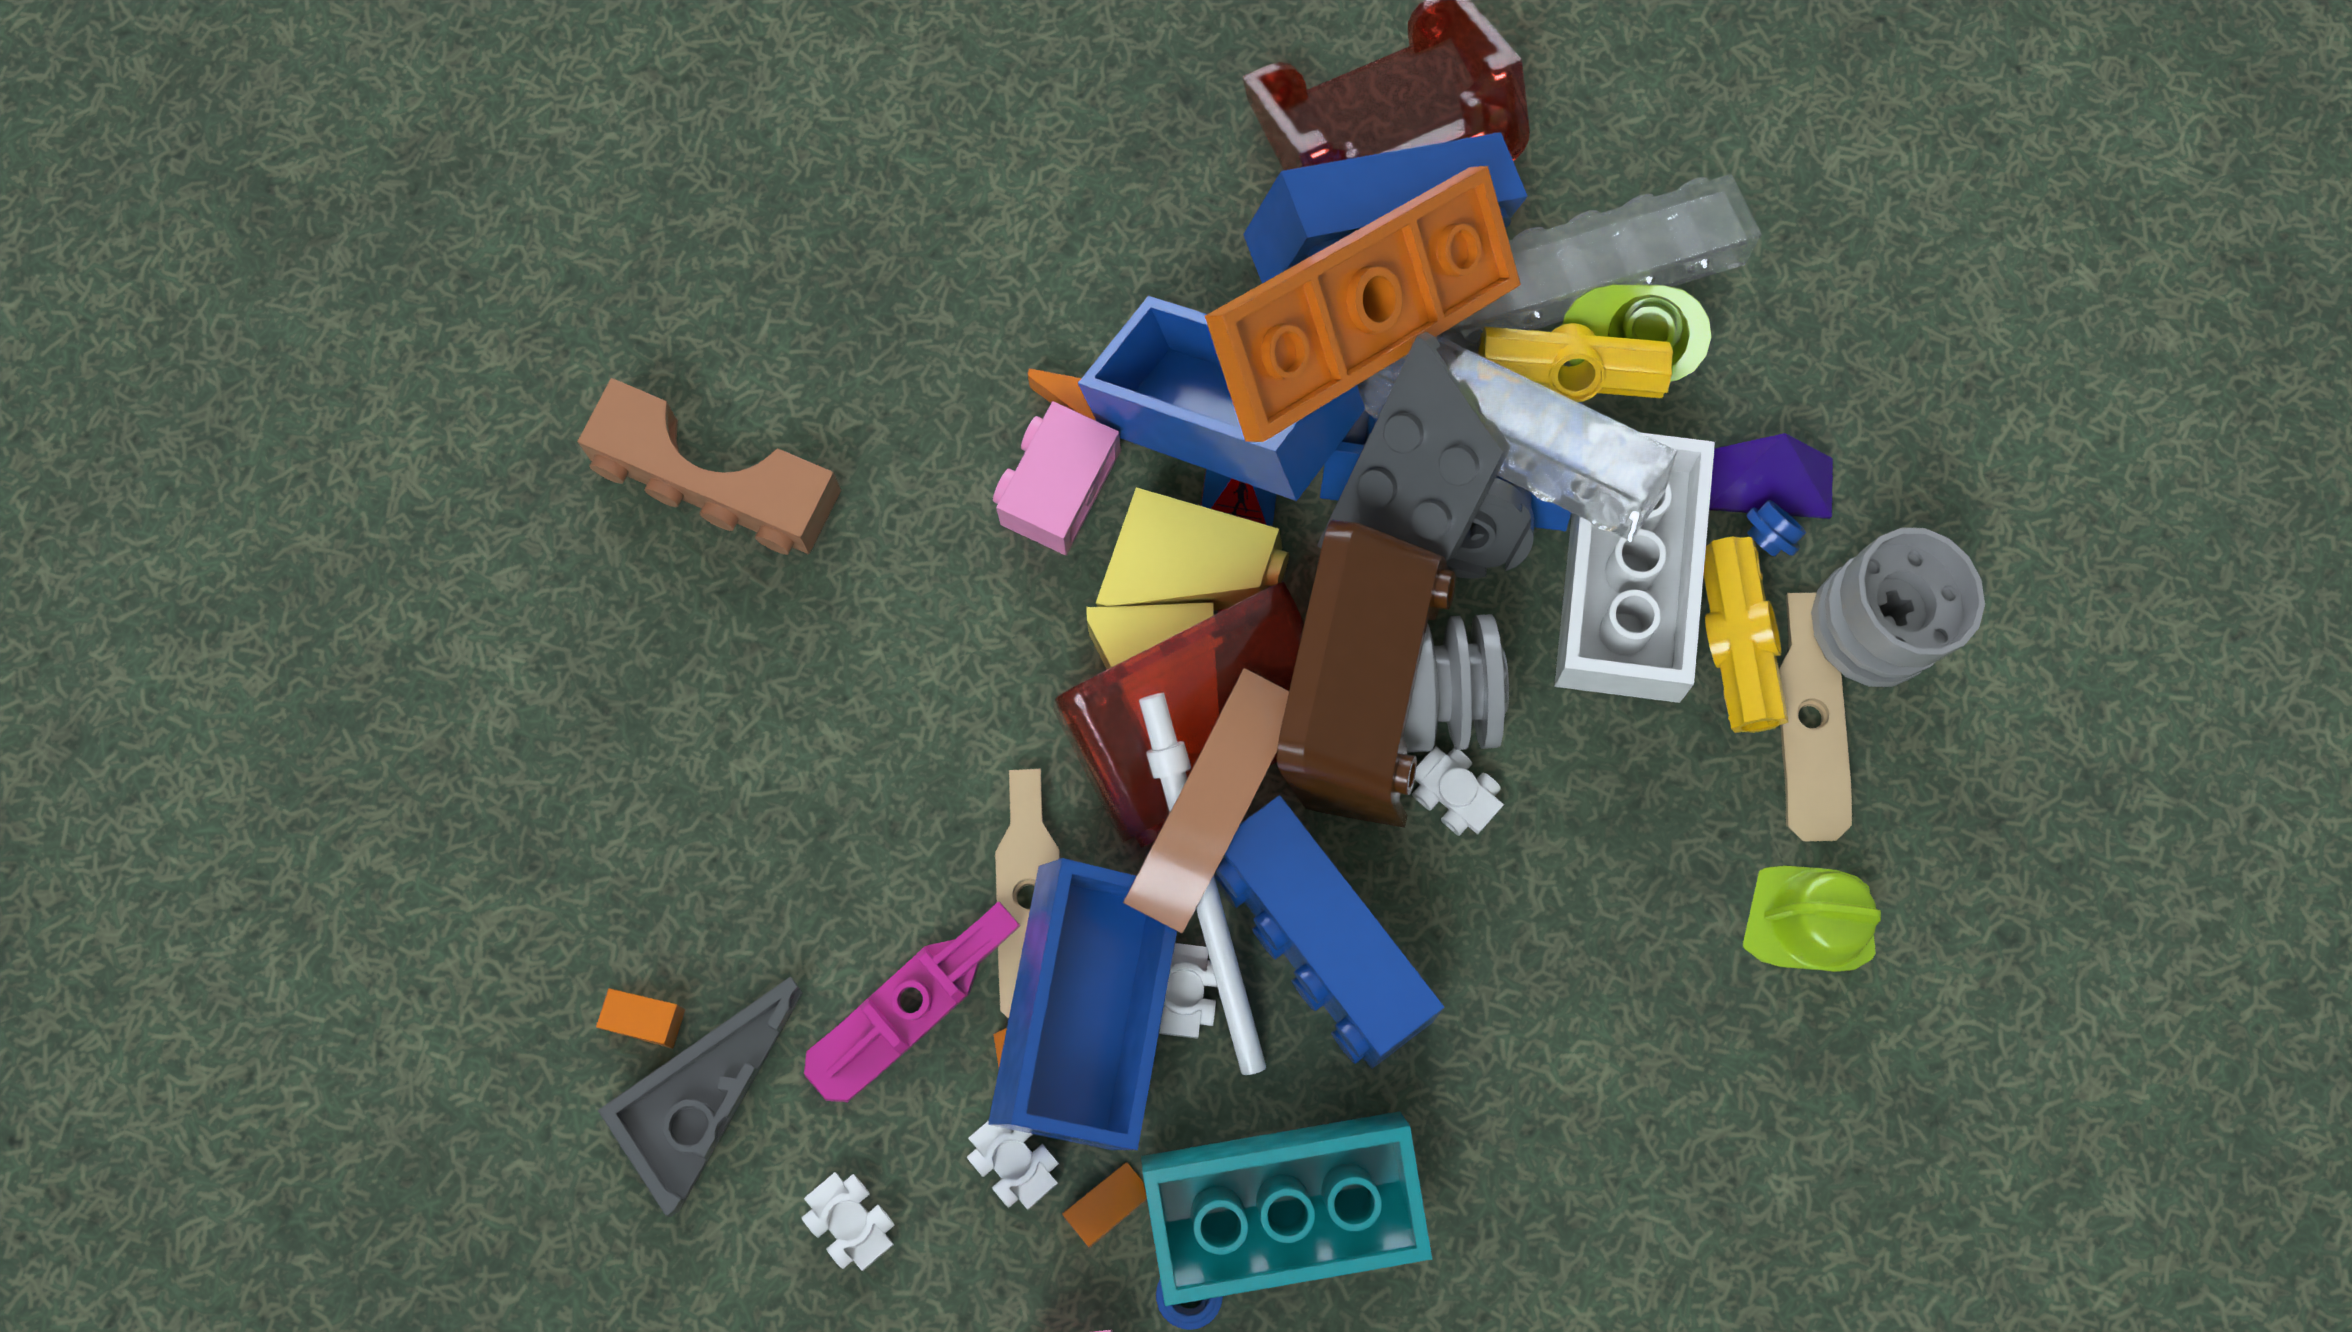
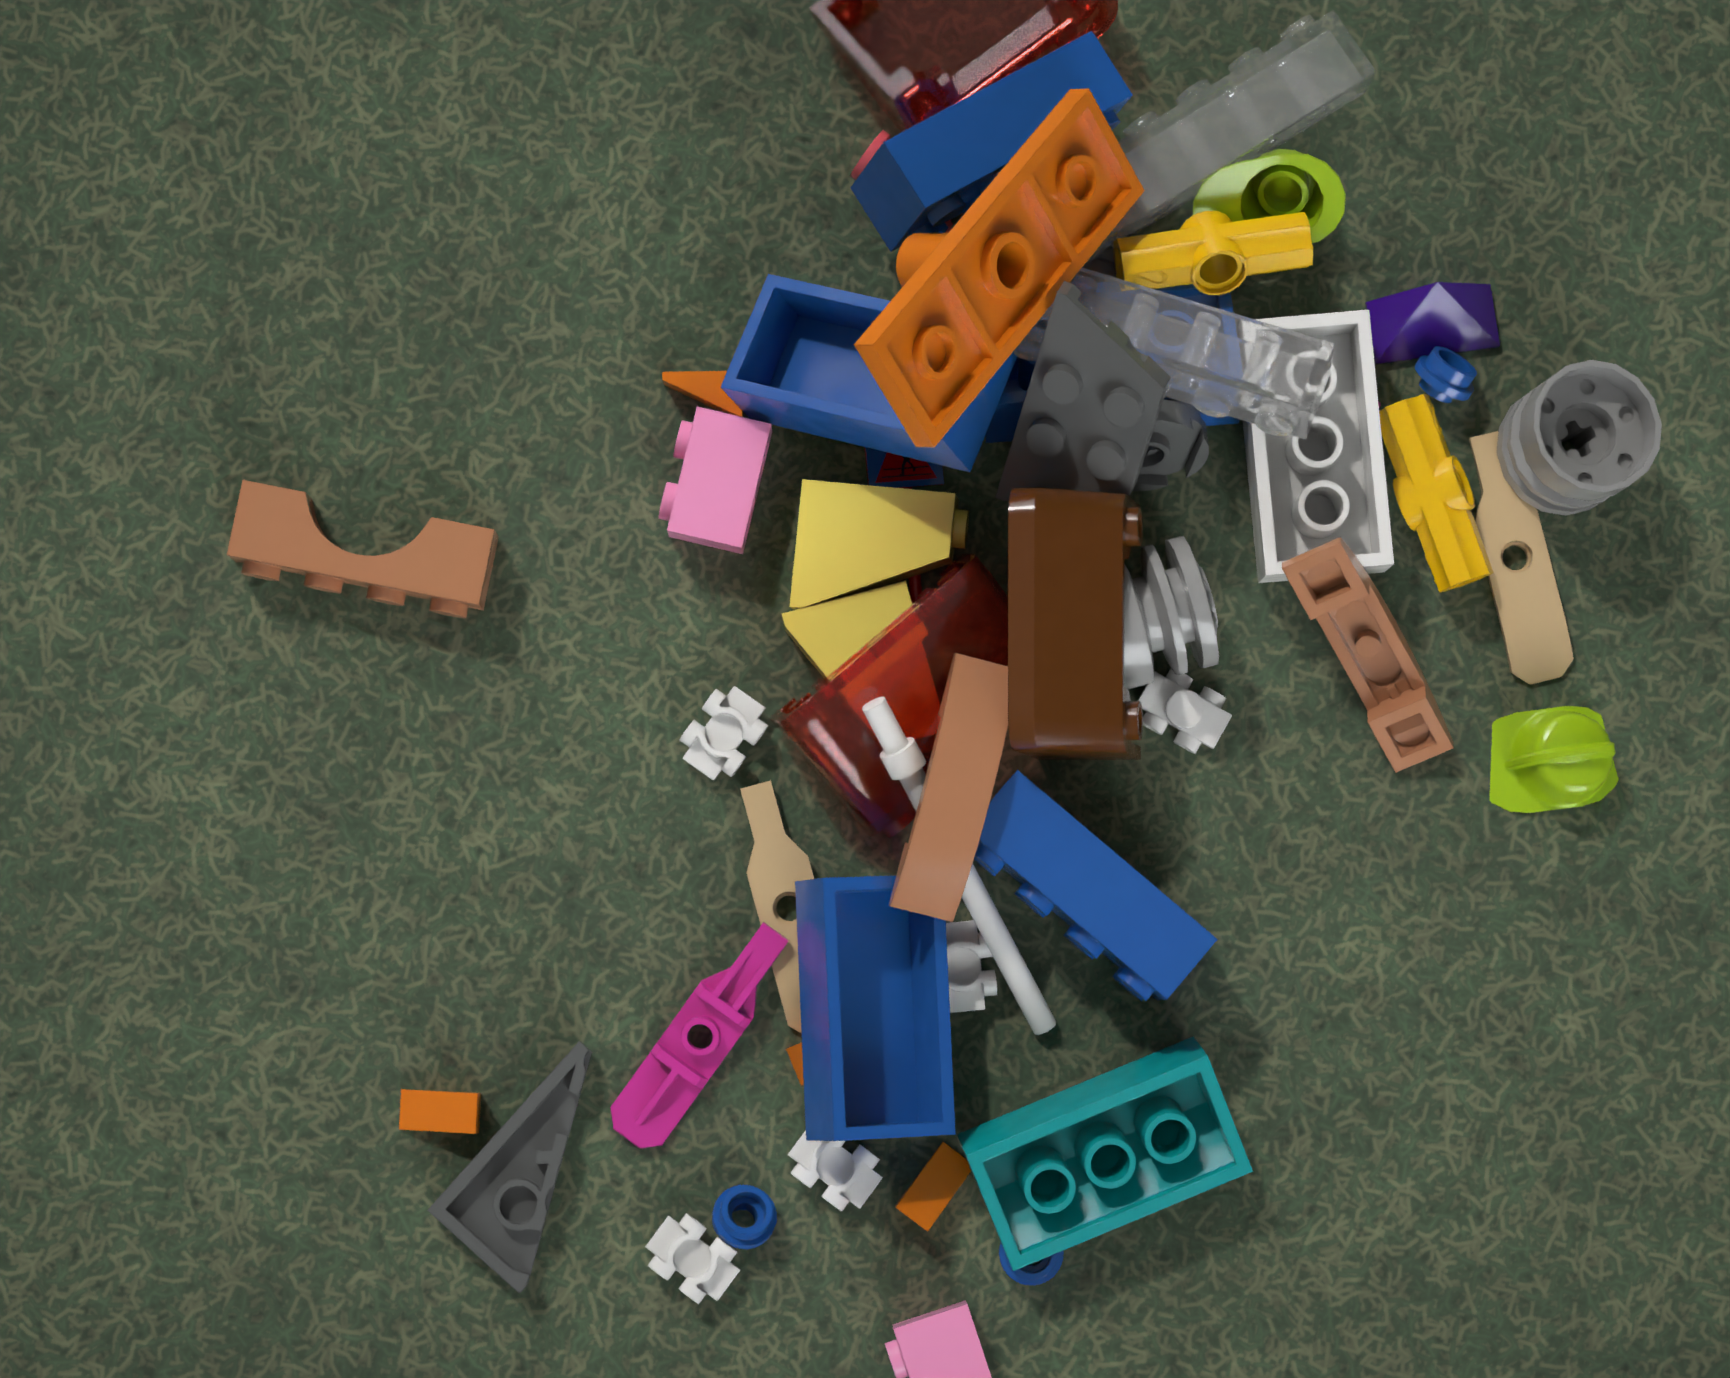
camera: 20 degrees left, 10 degrees up
(910, 1172) = (744, 1198): none -> blue plate
(996, 724) = (732, 721): none -> white piece
(1652, 767) = (1372, 652): none -> nougat slope

